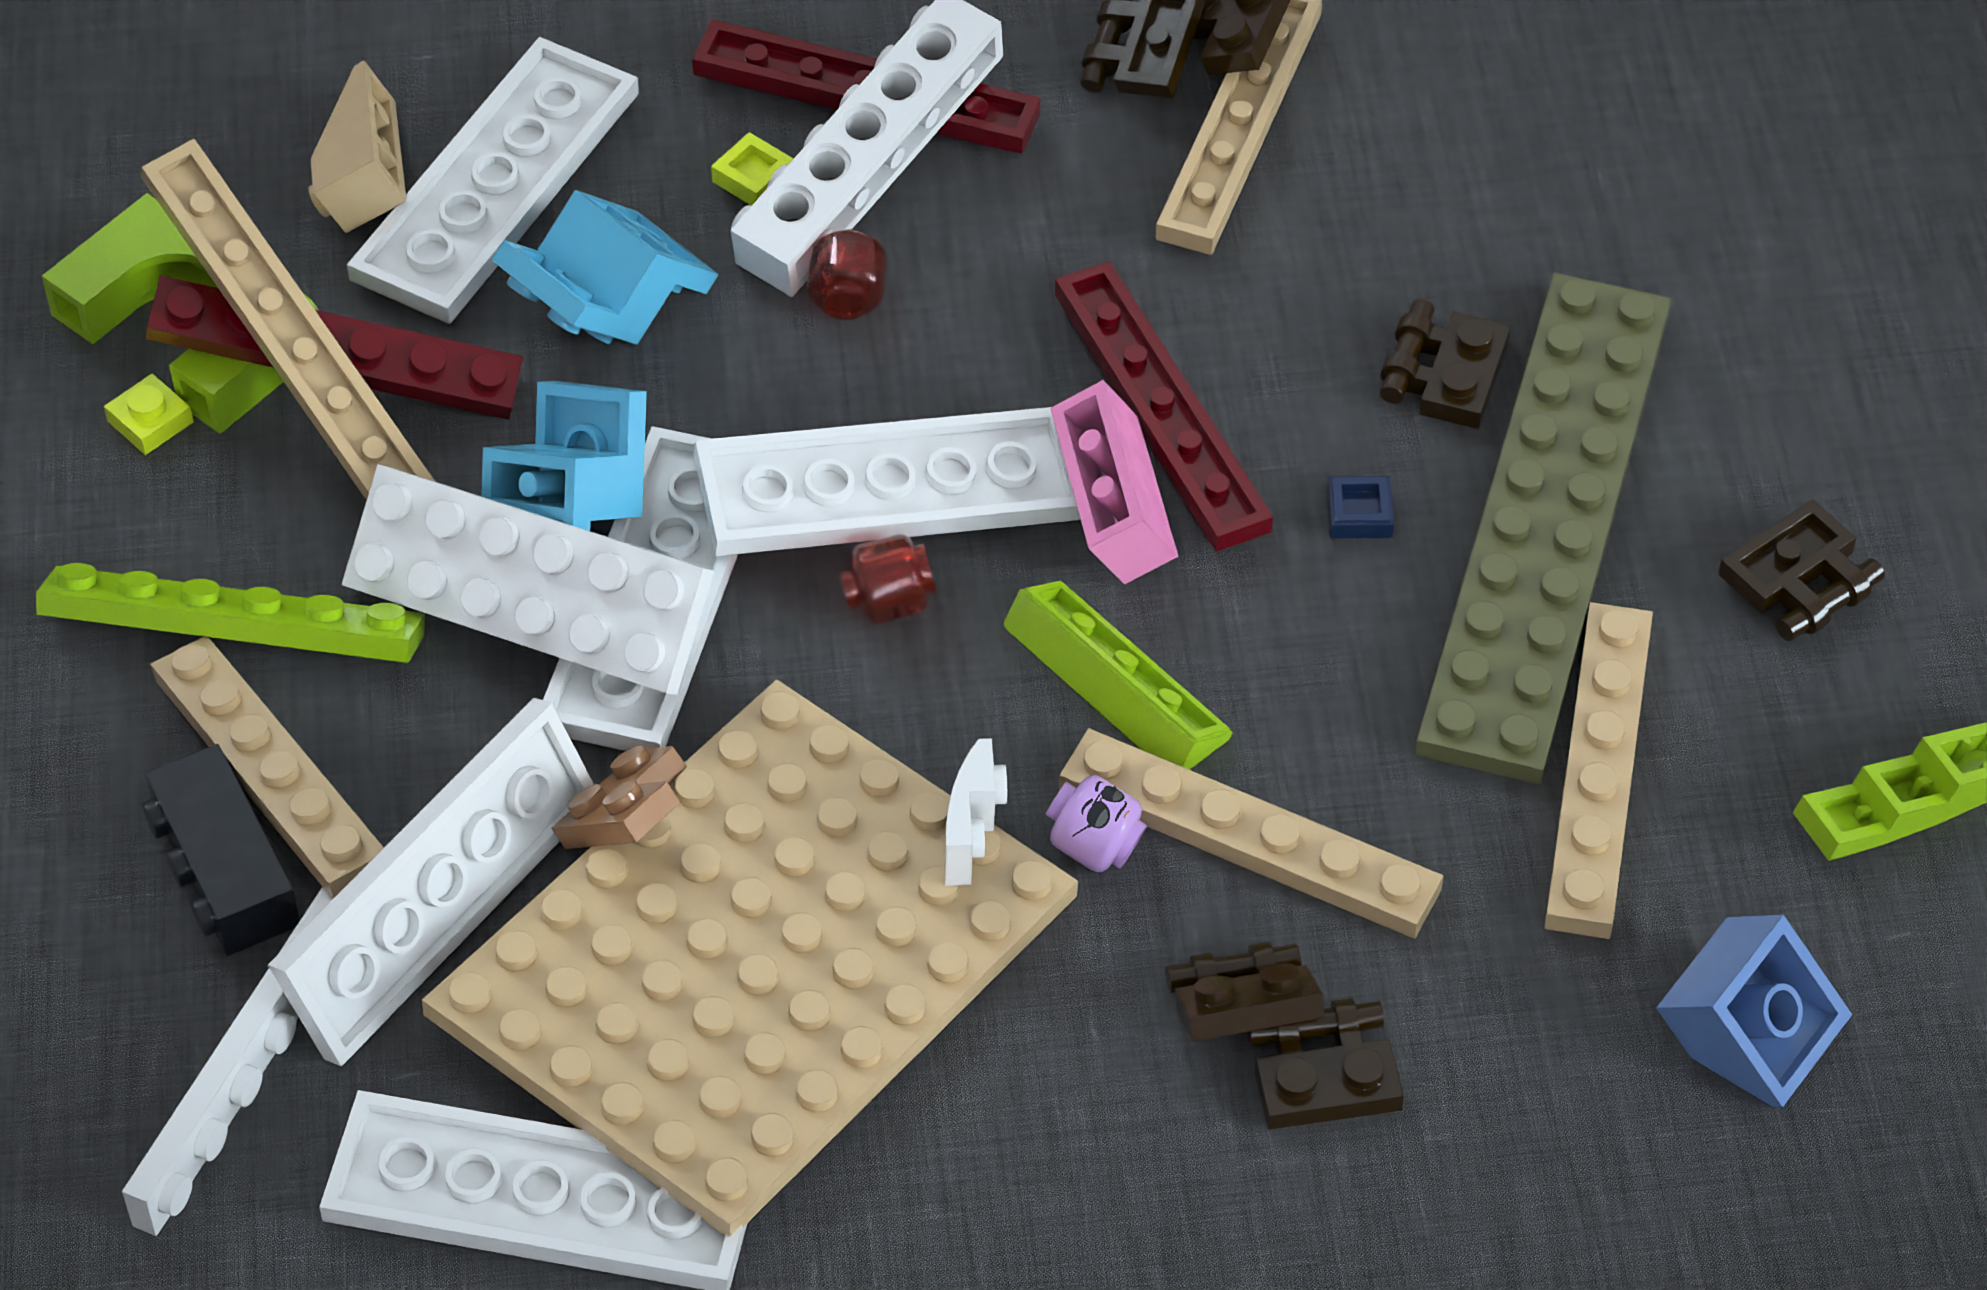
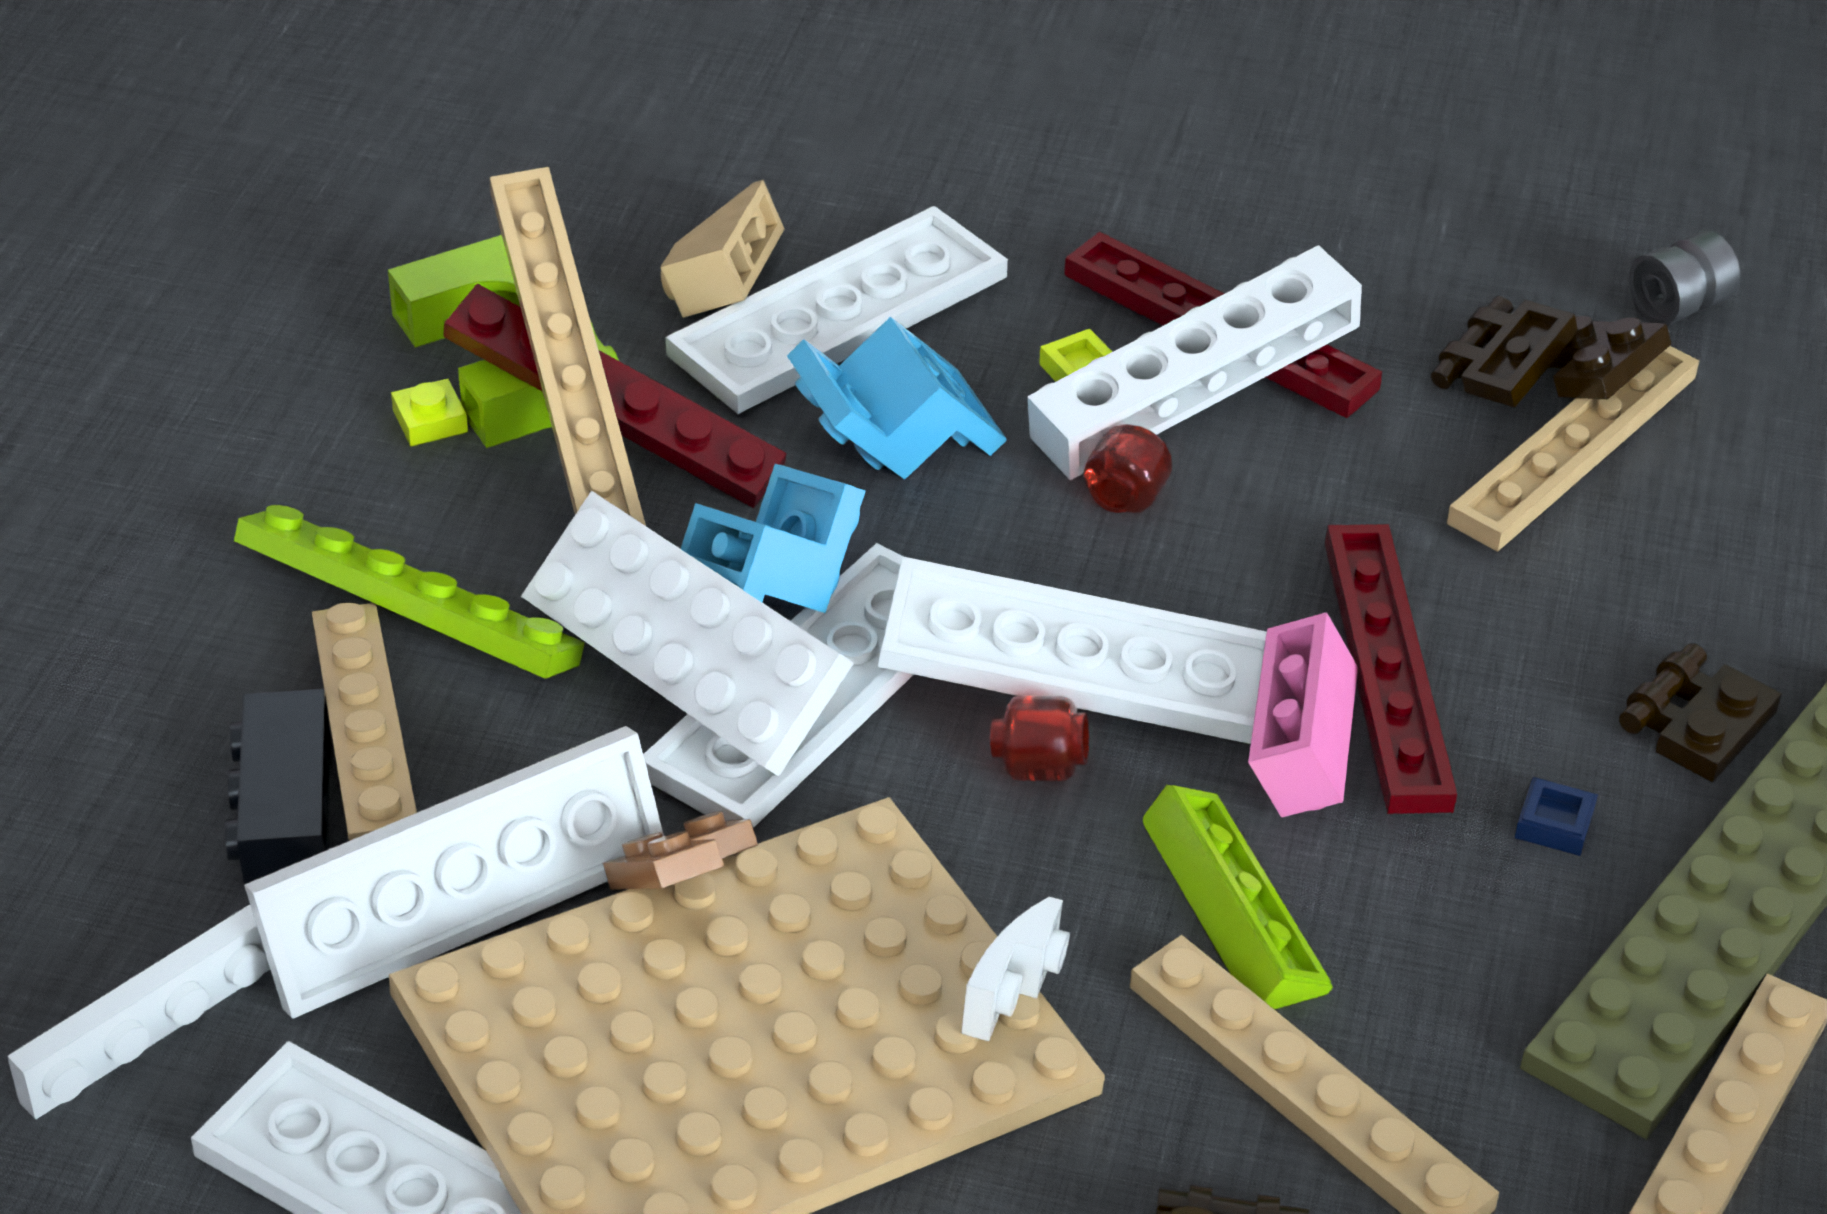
camera: 20 degrees right, 10 degrees down
(1096, 823) = (1146, 1025): lavender head -> none

